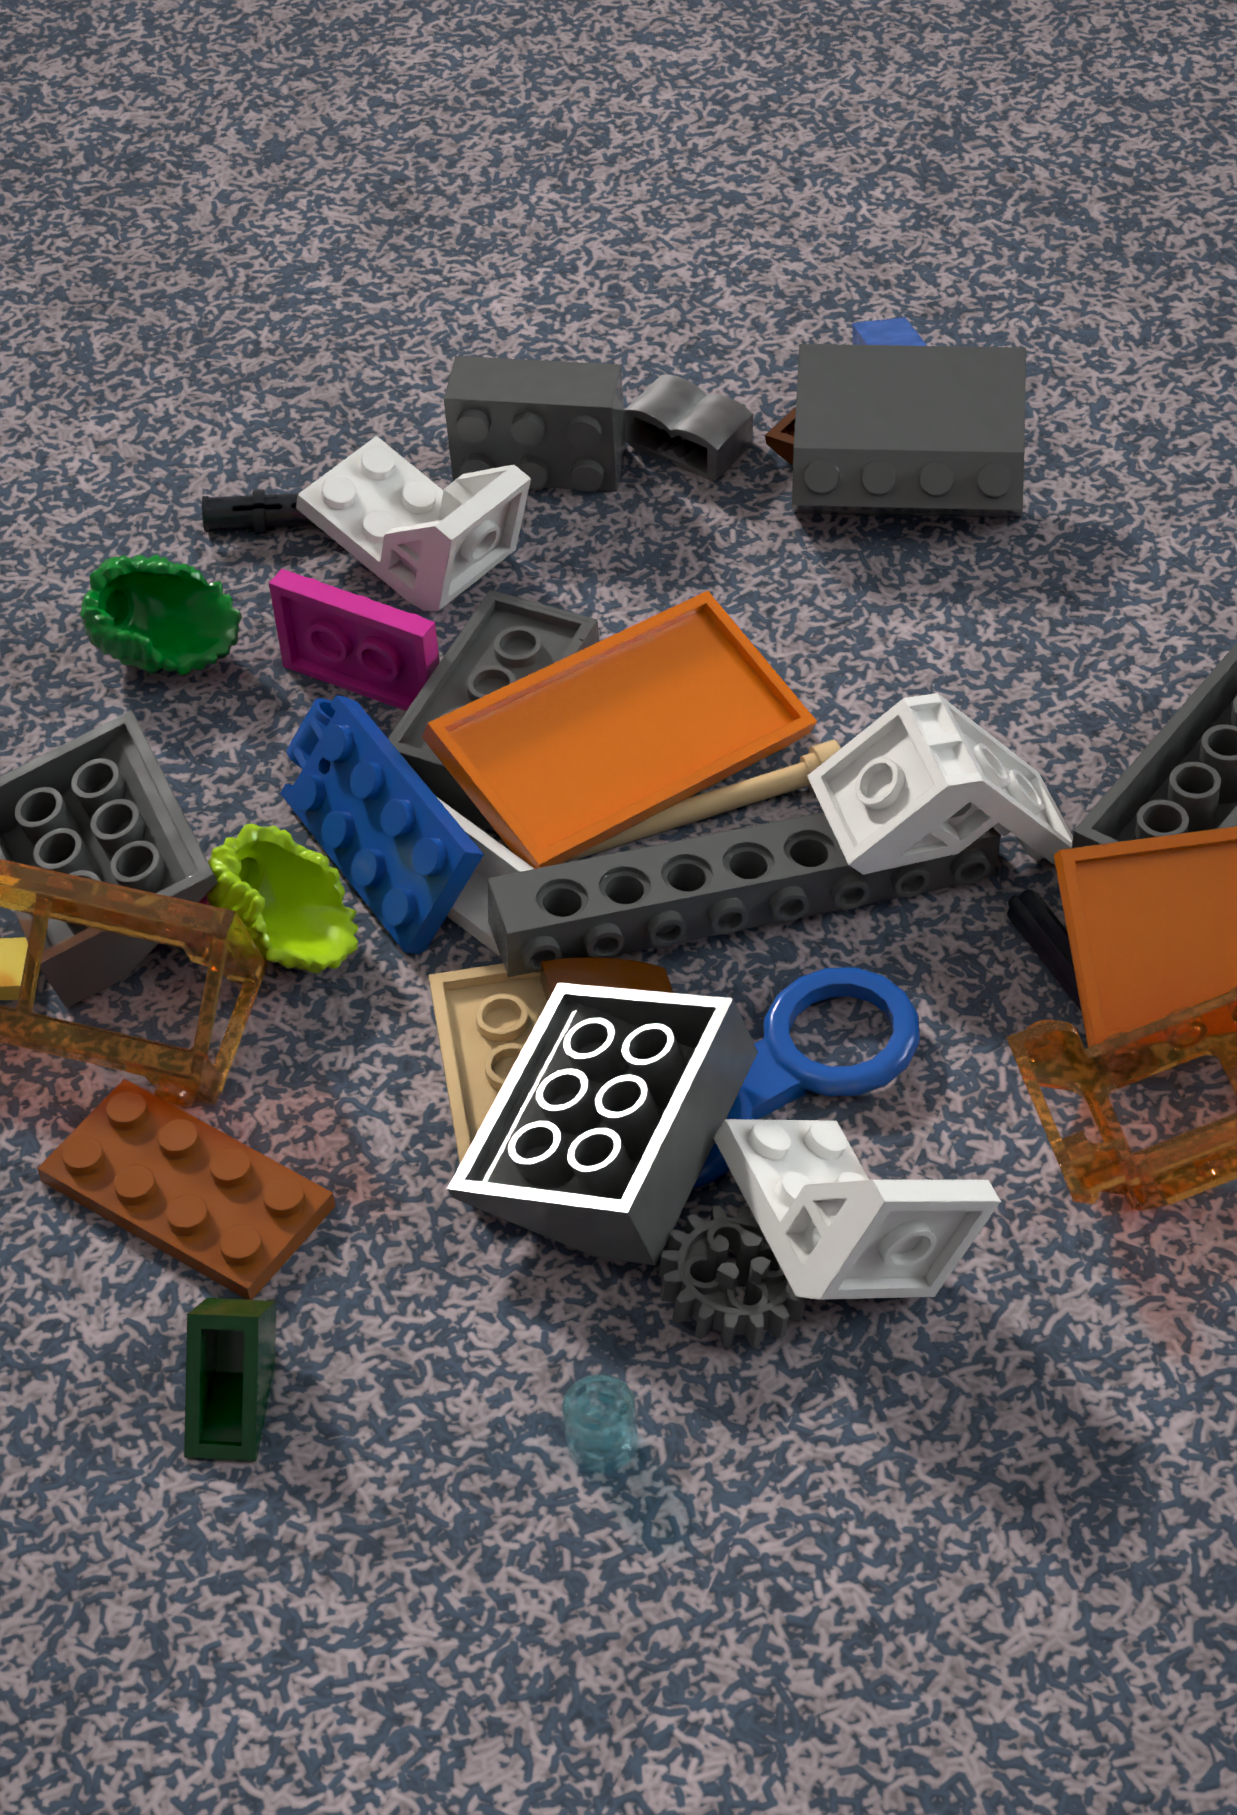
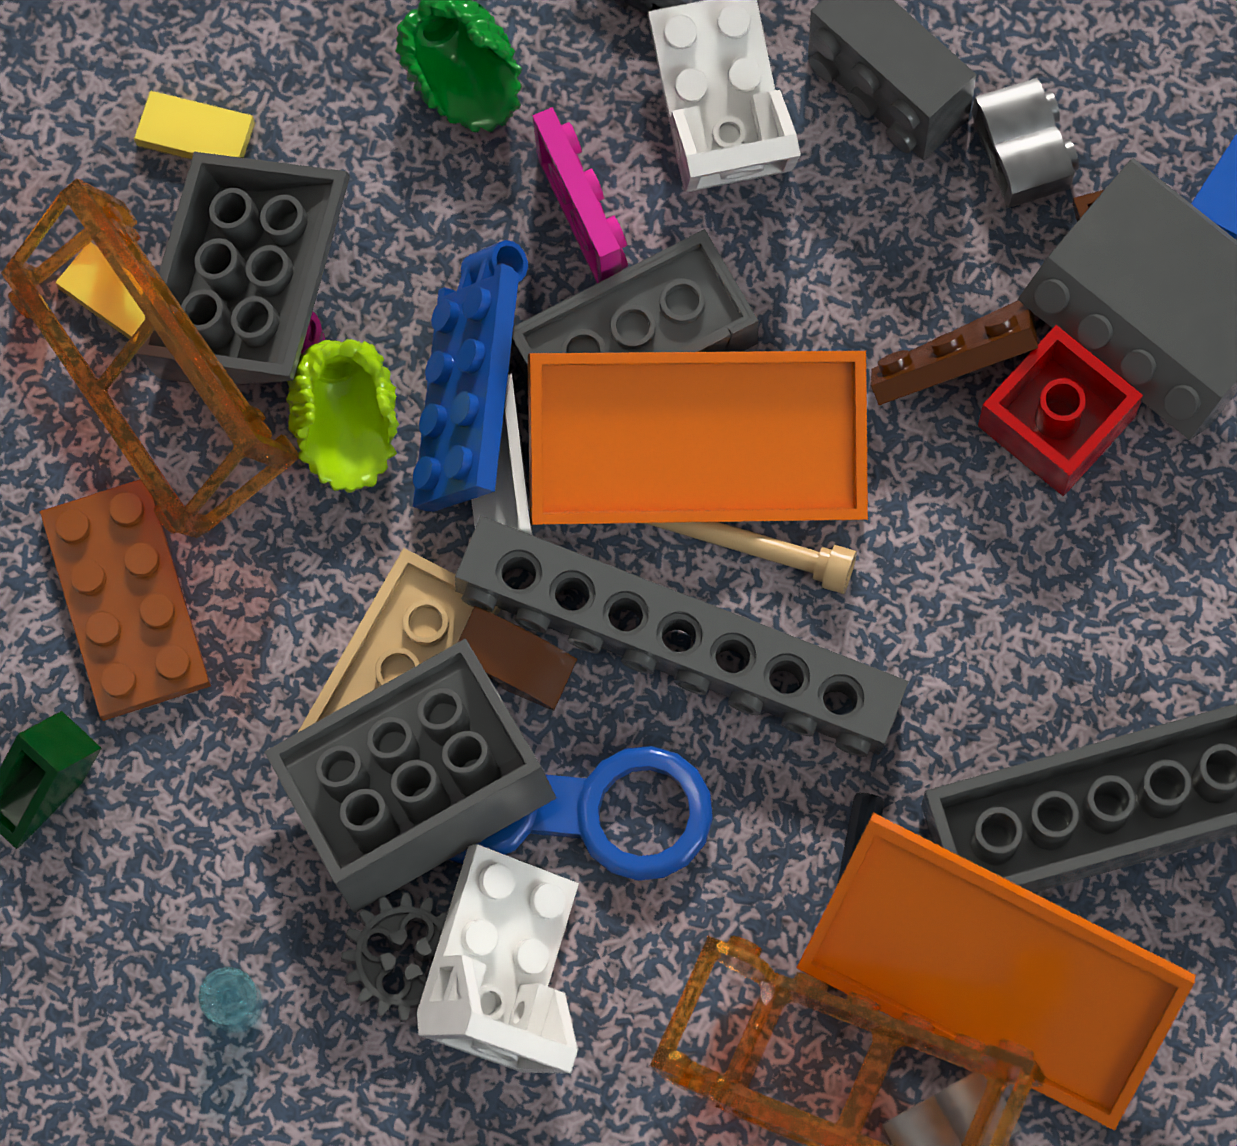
camera: 40 degrees right, 25 degrees up
(782, 559) = (956, 353): none -> reddish brown wing
(900, 553) = (1059, 410): none -> red brick
(930, 786) = (866, 683): white bracket -> none

